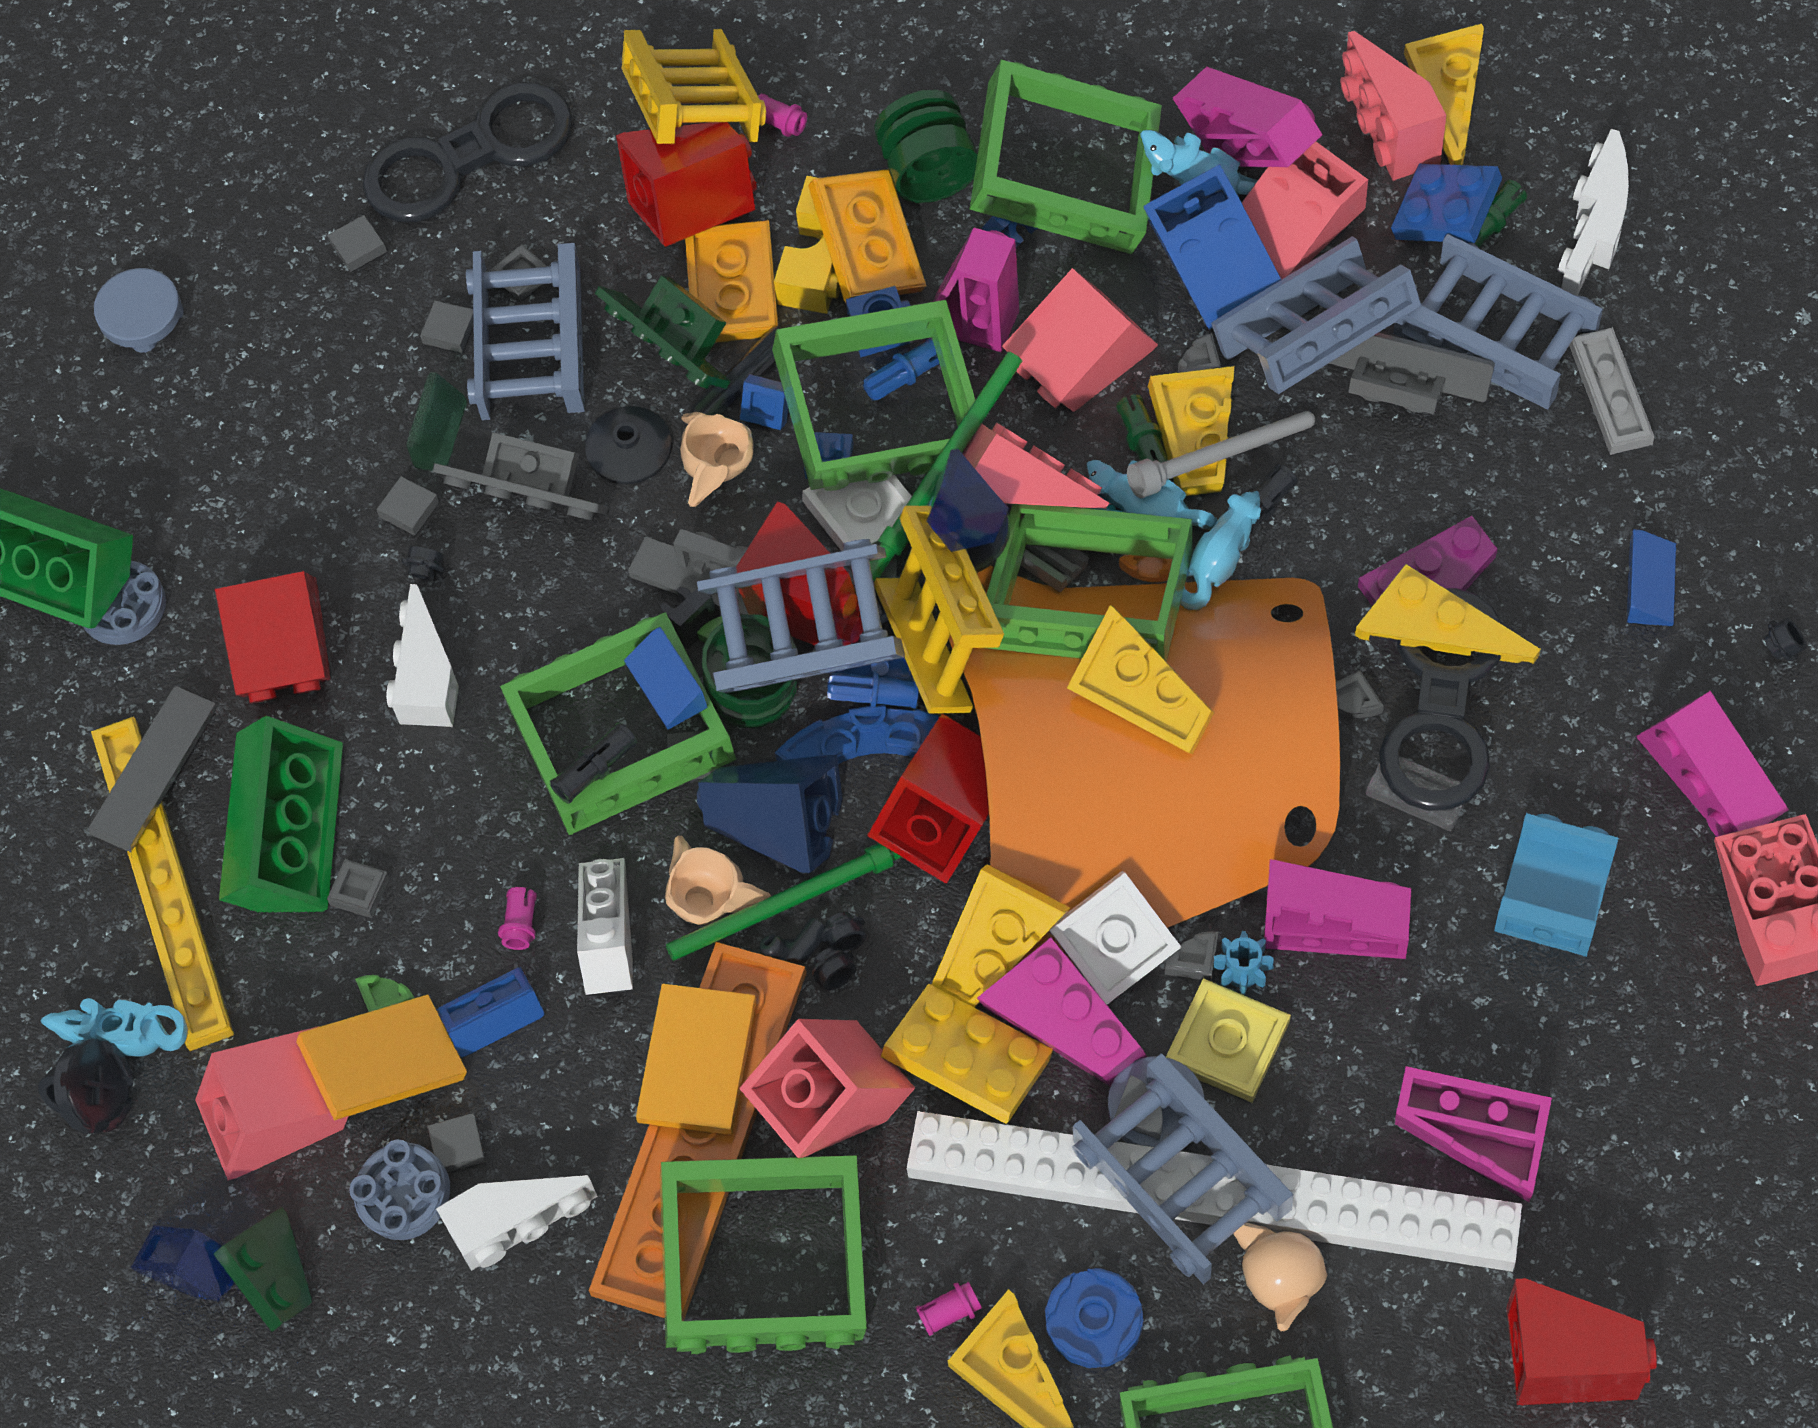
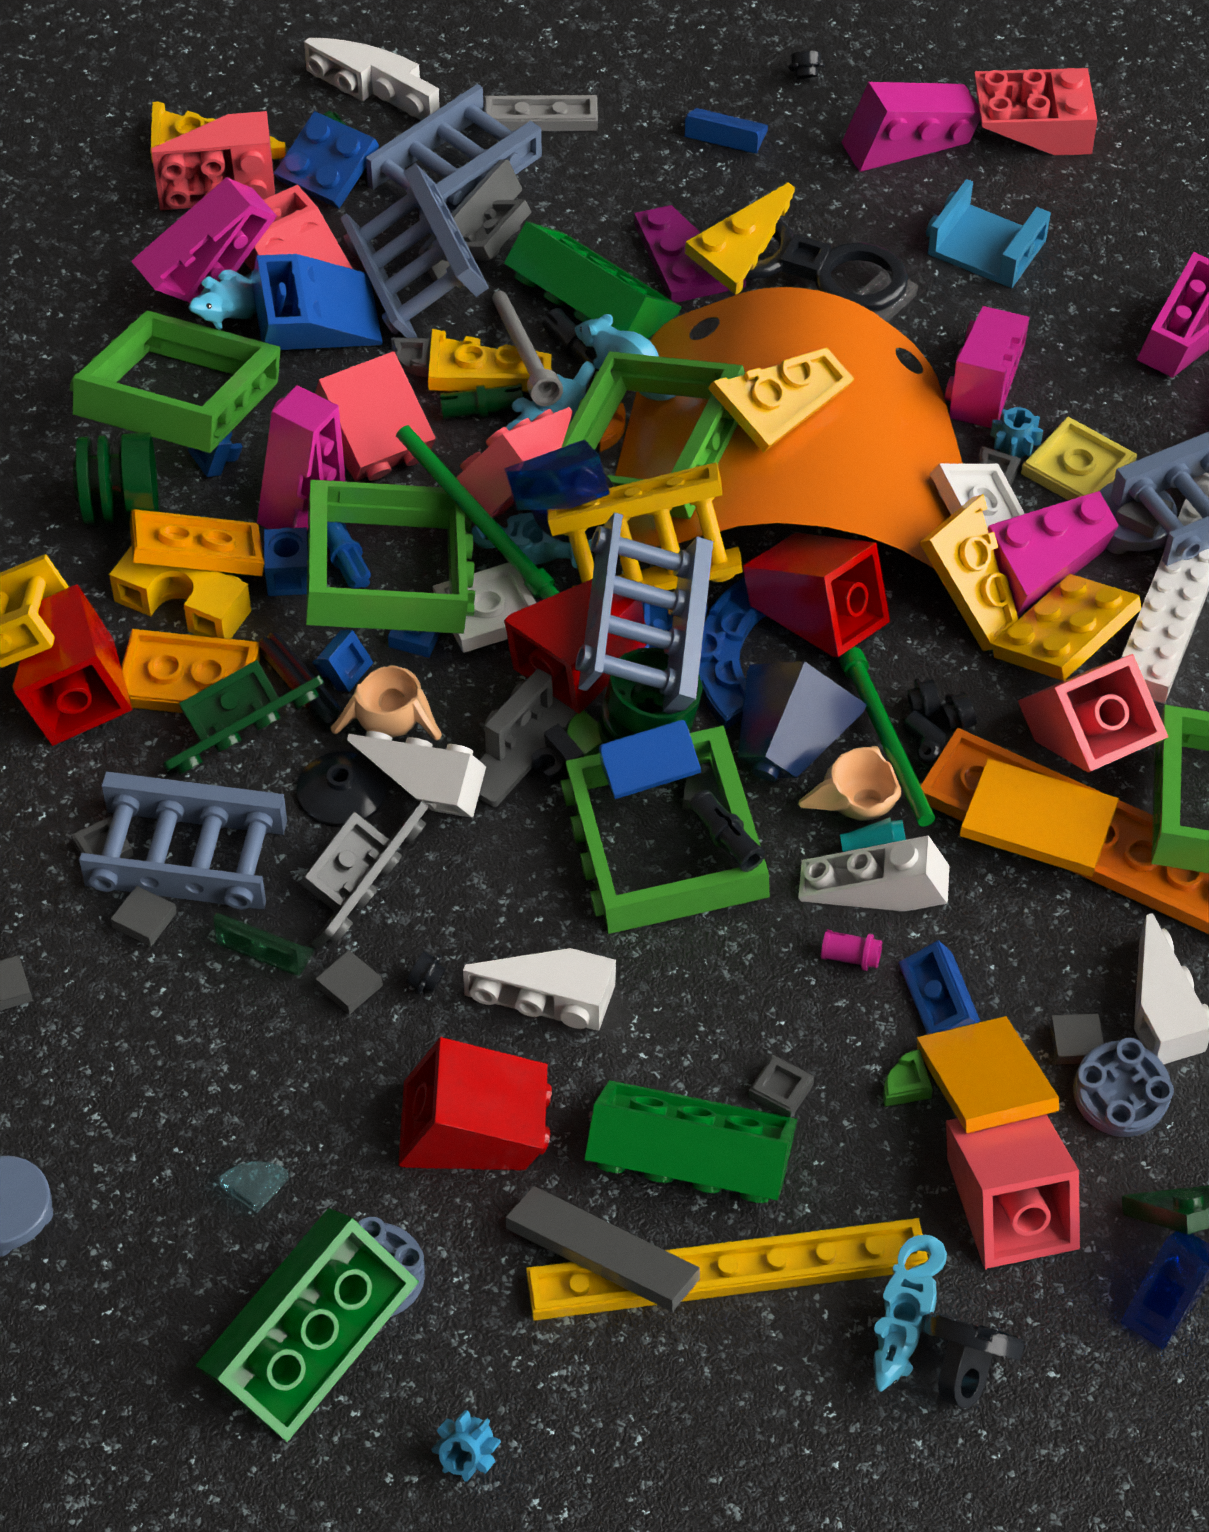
camera: 85 degrees left, 10 degrees down
(189, 488) = (254, 1182): none -> clear light blue tile
(637, 501) = (440, 777): none -> white slope
(650, 920) = (873, 835): none -> teal cone
(1345, 497) = (587, 281): none -> green slope

